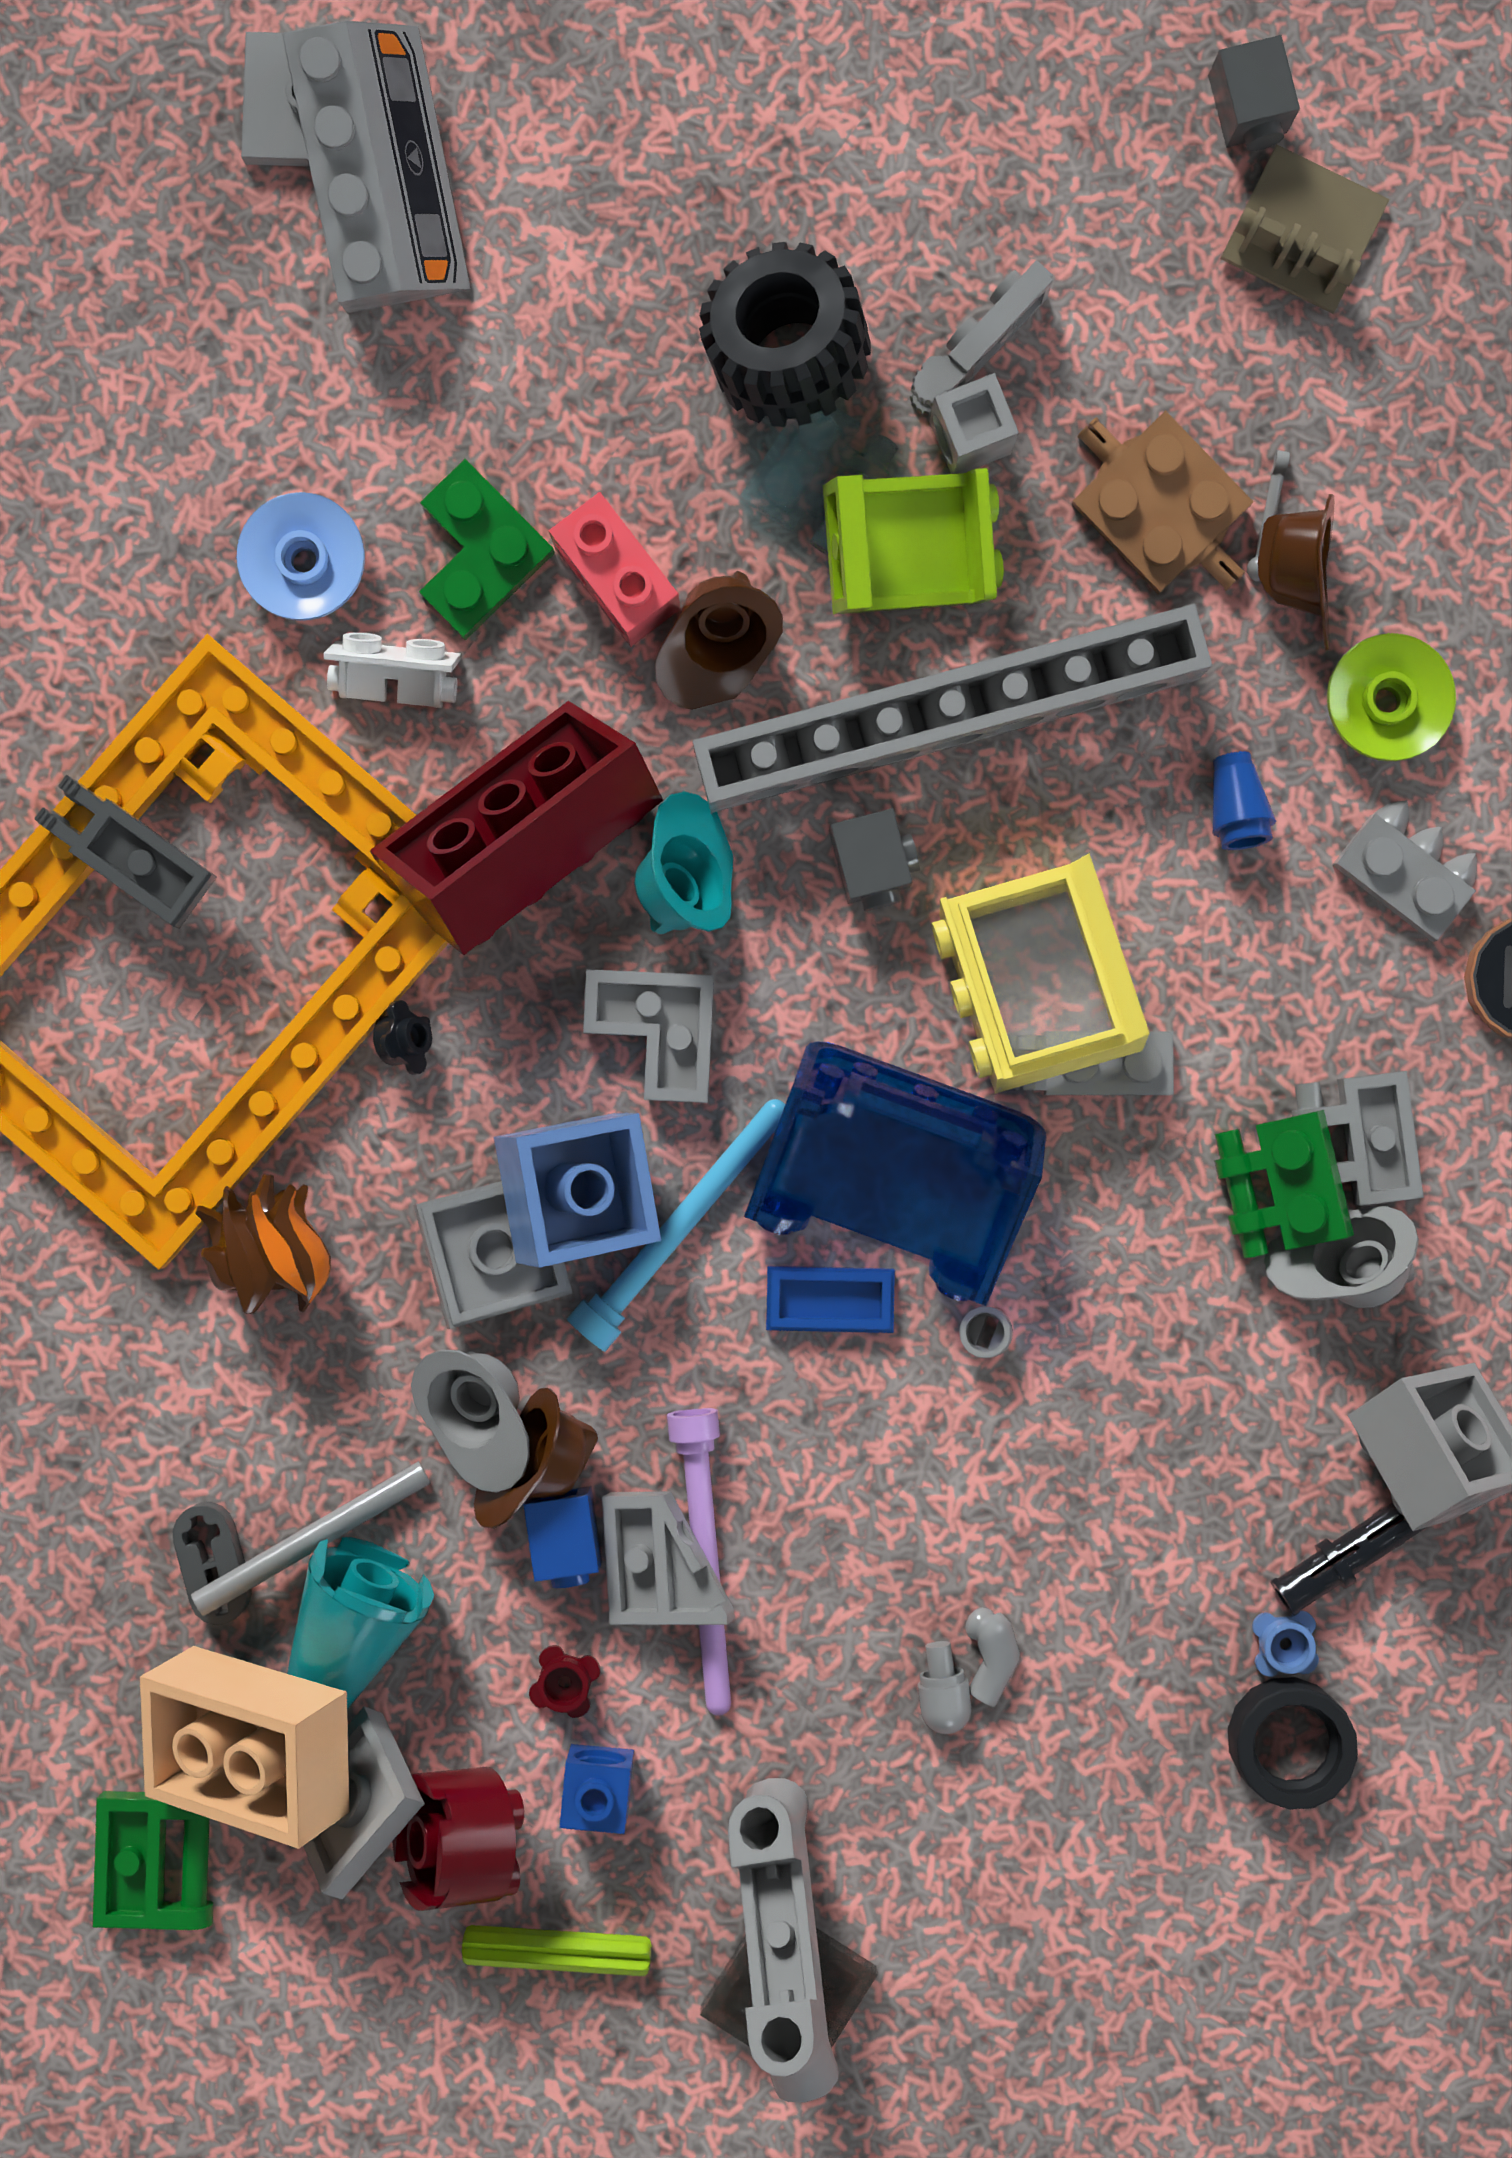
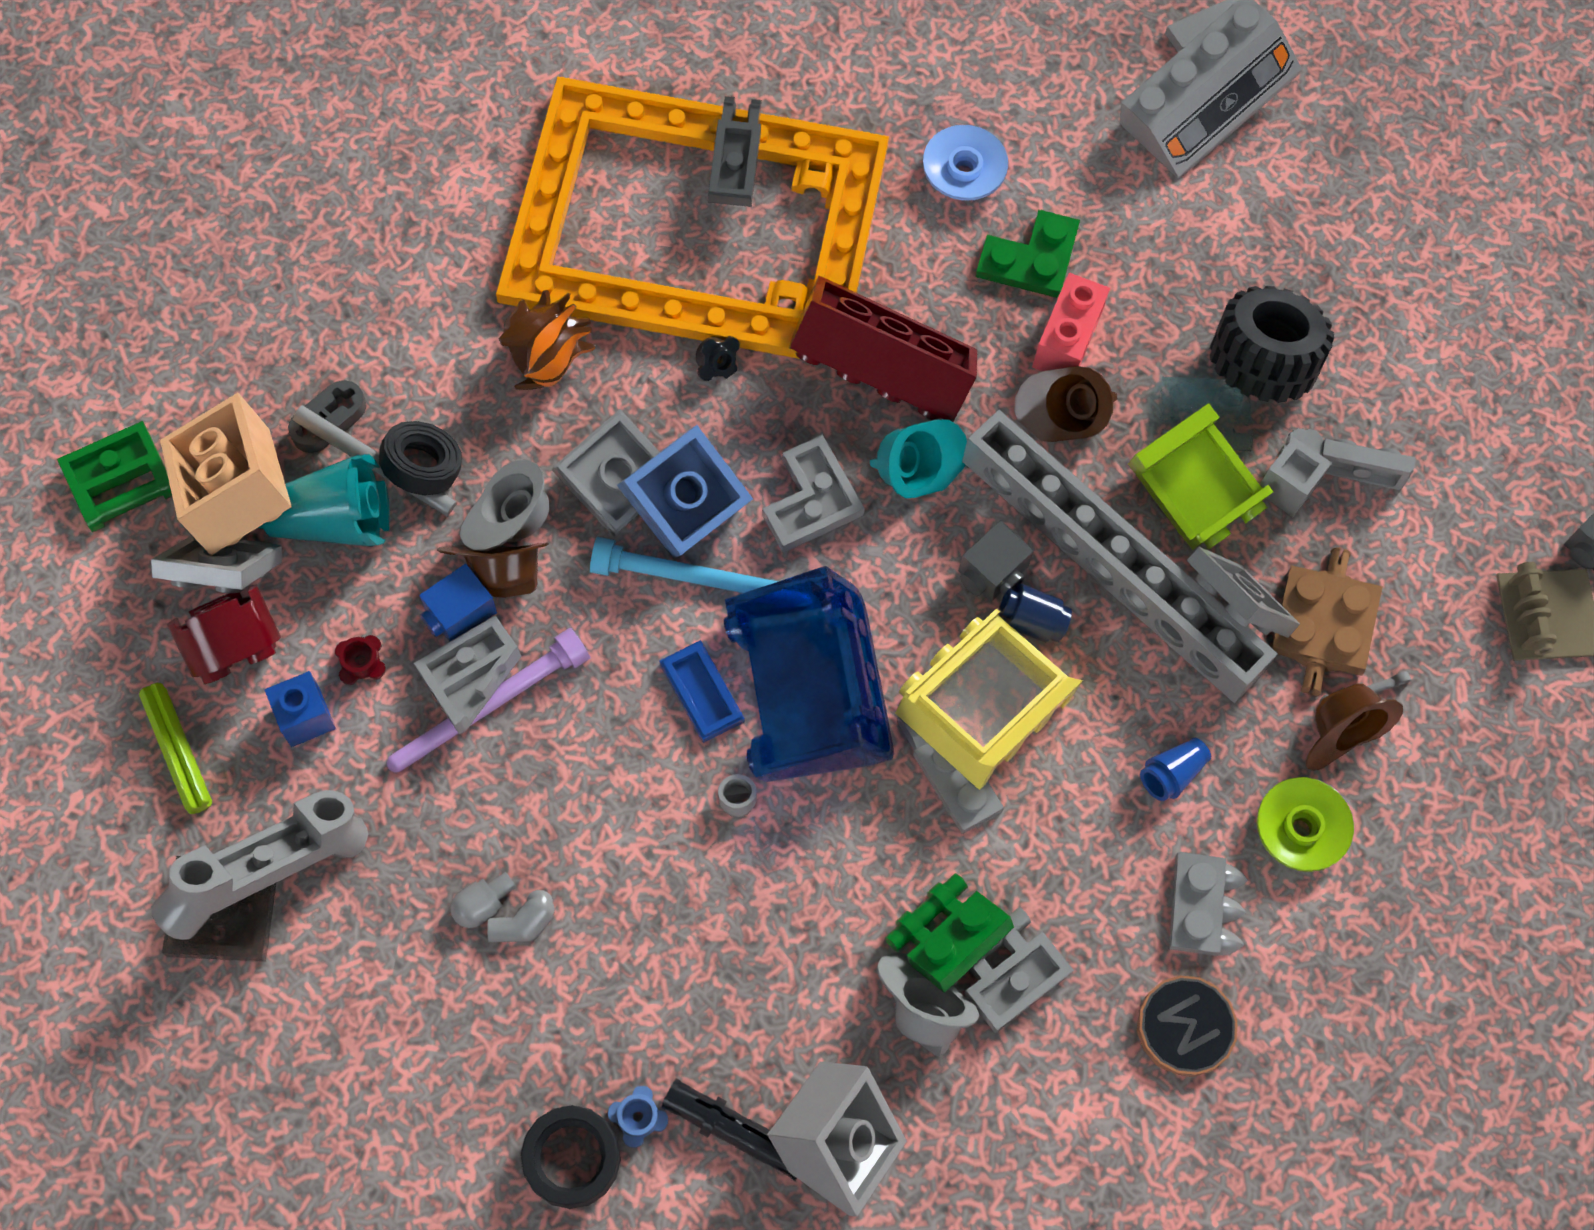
camera: 55 degrees right, 20 degrees down
(361, 1513) = (416, 478): none -> black tyre
(368, 665) = (942, 257): white hinge -> none
(964, 851) = (1035, 613): none -> dark blue brick
(1092, 593) = (1246, 596): none -> light grey plate

